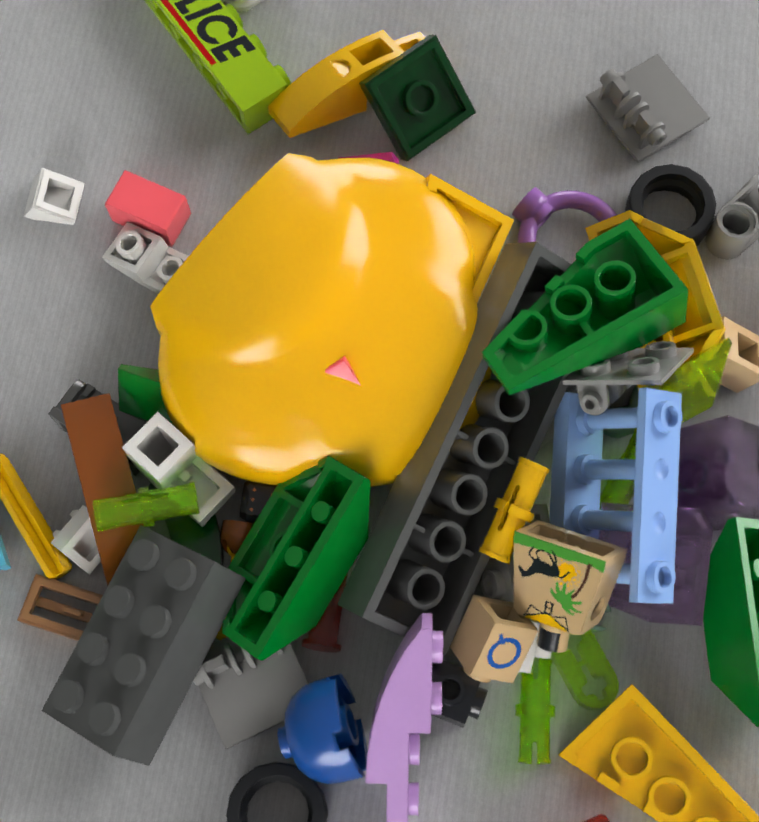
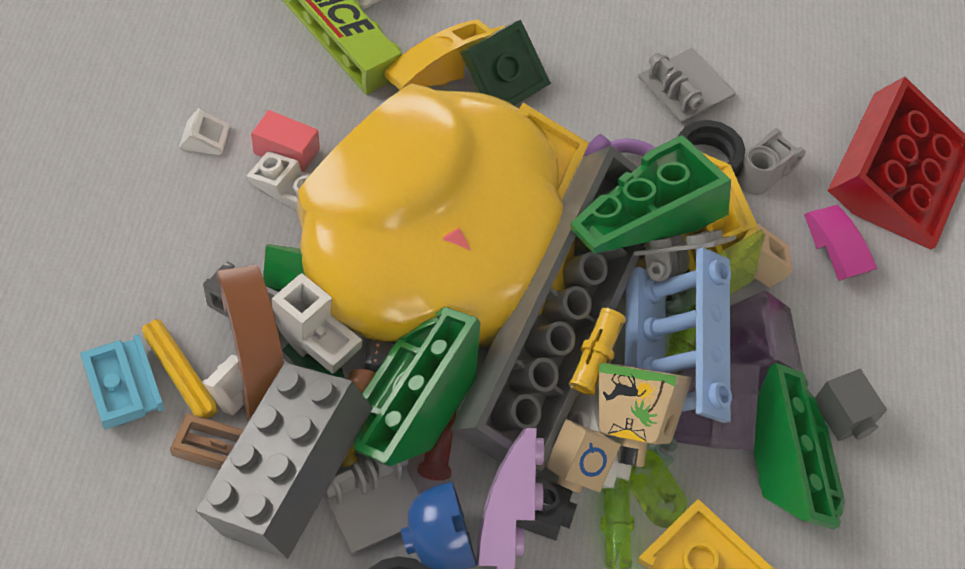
camera: 10 degrees left, 15 degrees down
(145, 507) = (289, 348): clear neon green pin -> none

